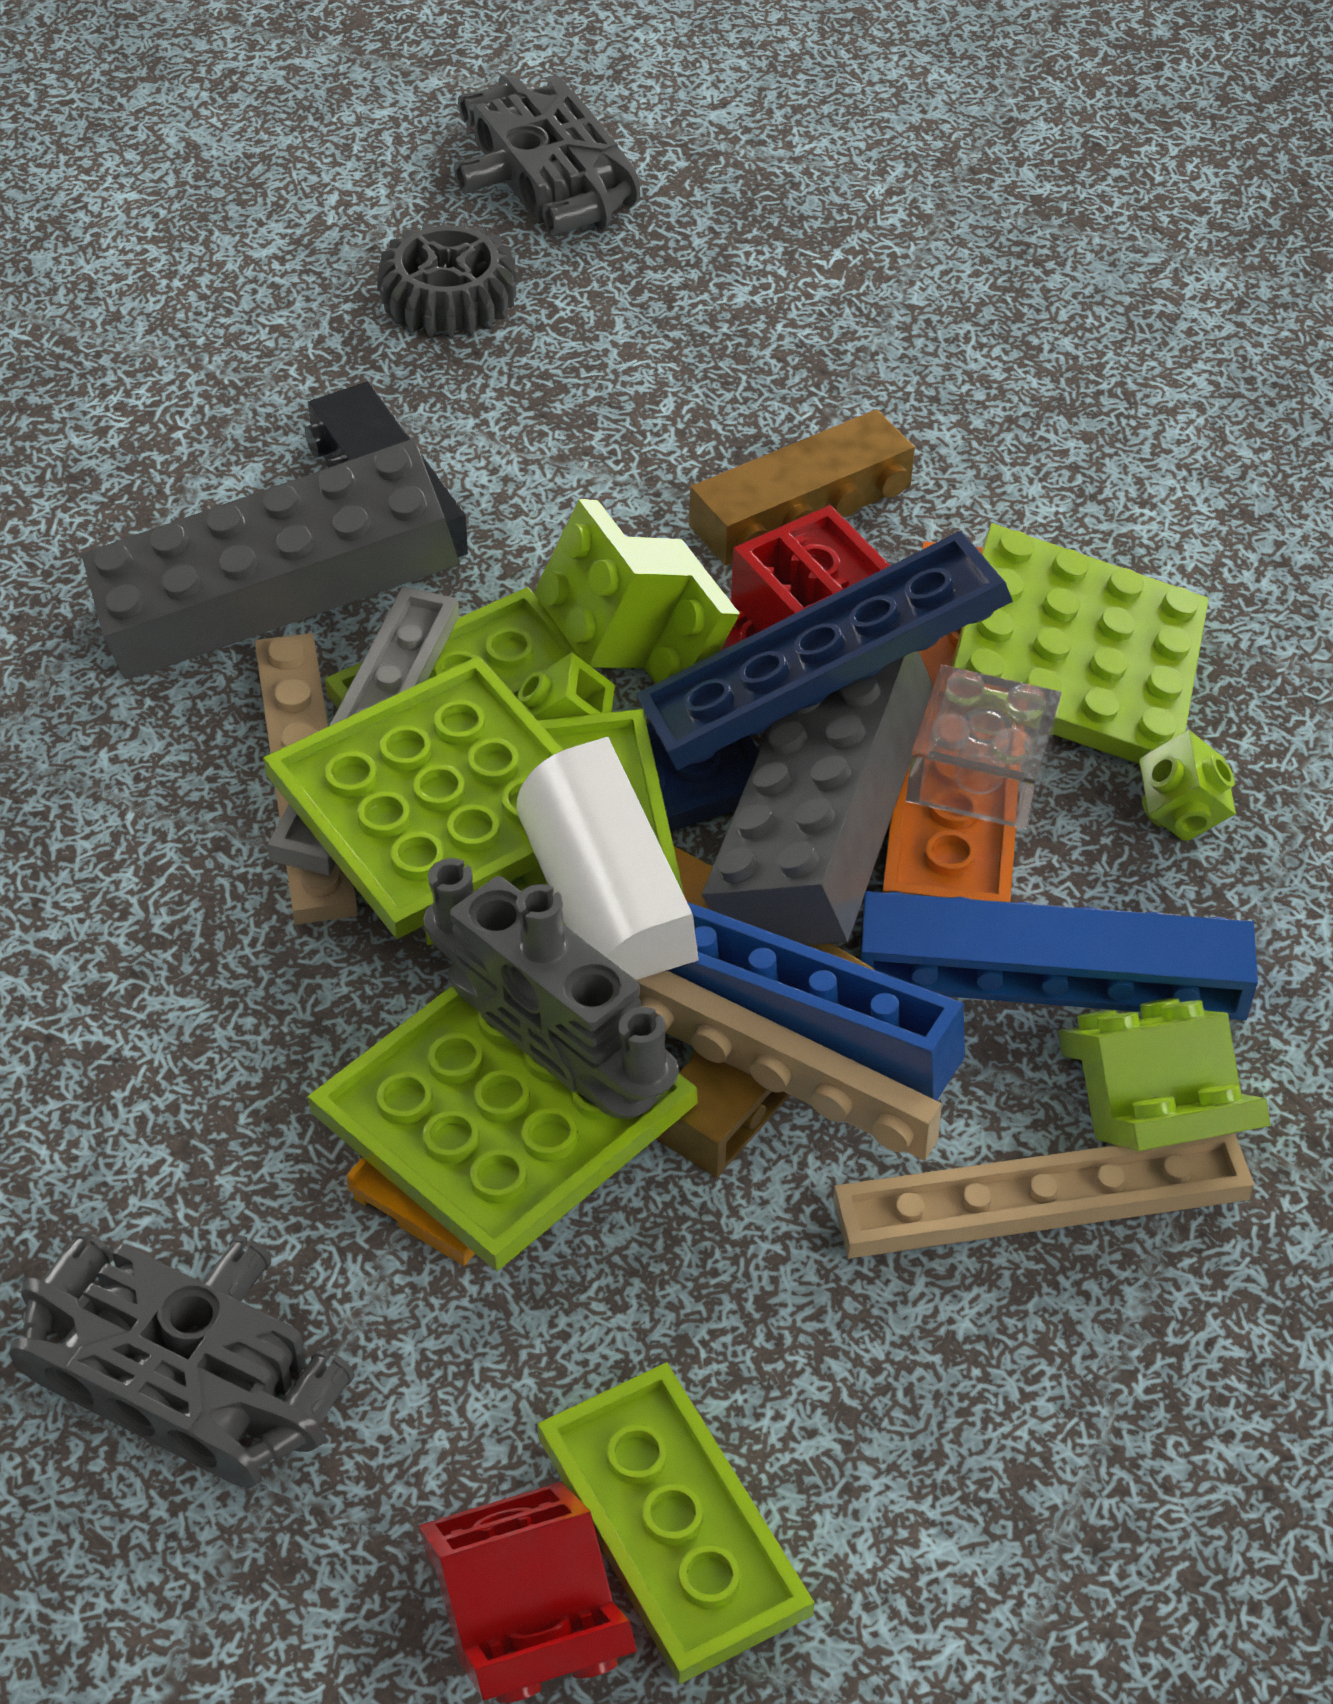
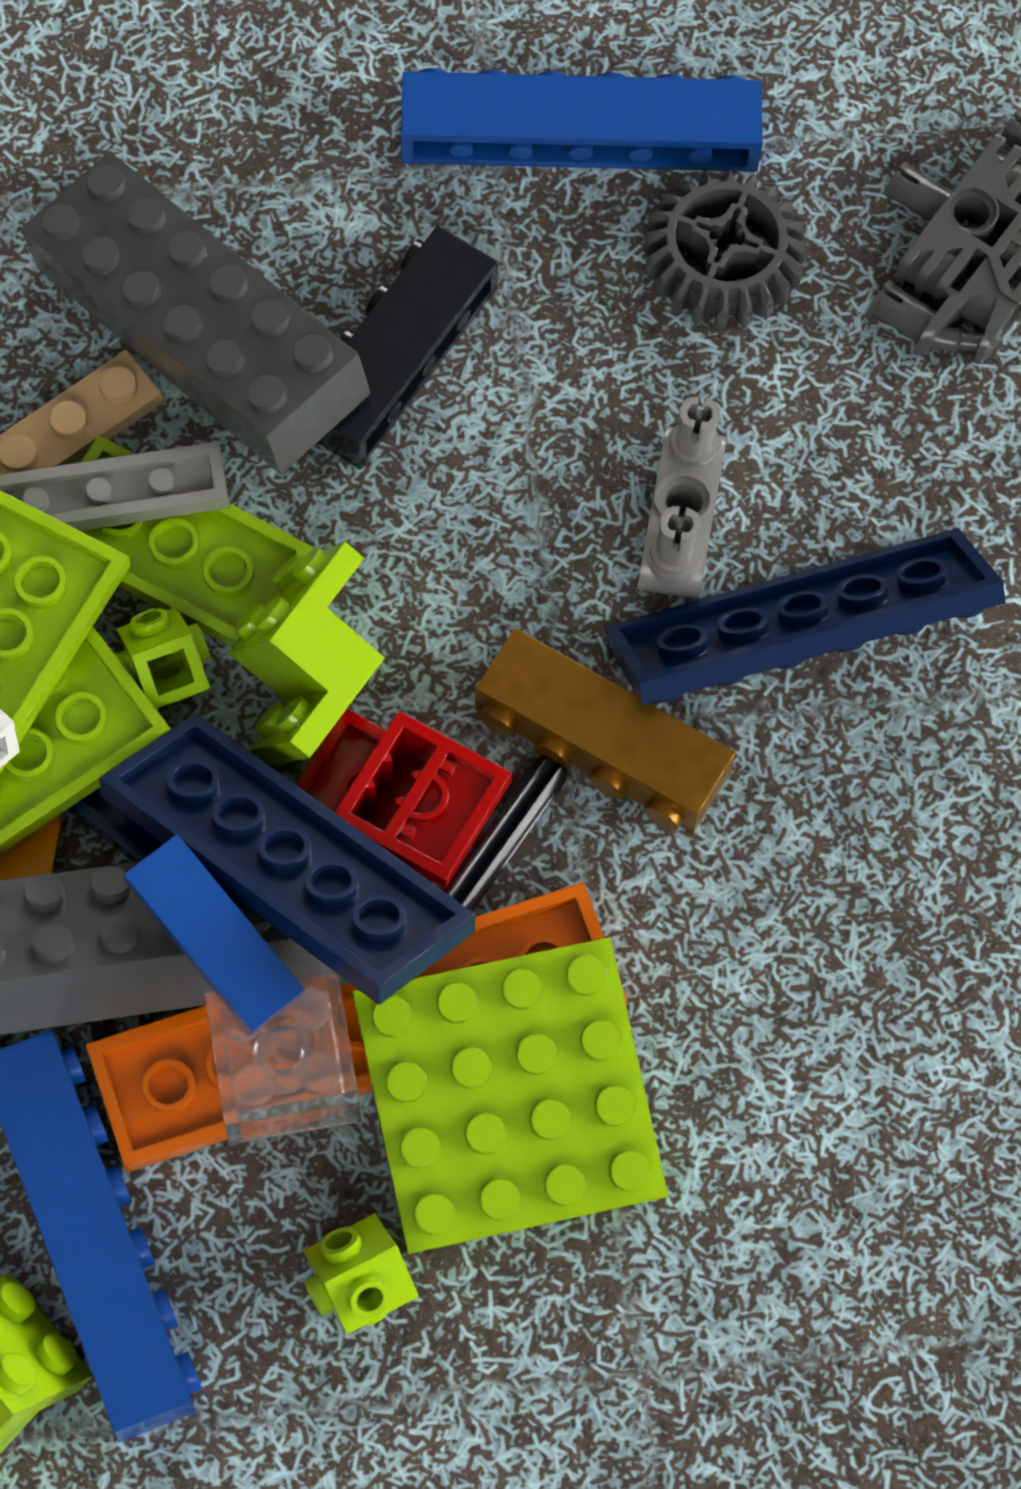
camera: 60 degrees right, 20 degrees up
(272, 314) = (581, 120): none -> blue brick
(645, 376) = (689, 480): none -> light grey piece
(784, 345) = (803, 616): none -> dark blue plate
(874, 702) = (213, 934): none -> blue tile

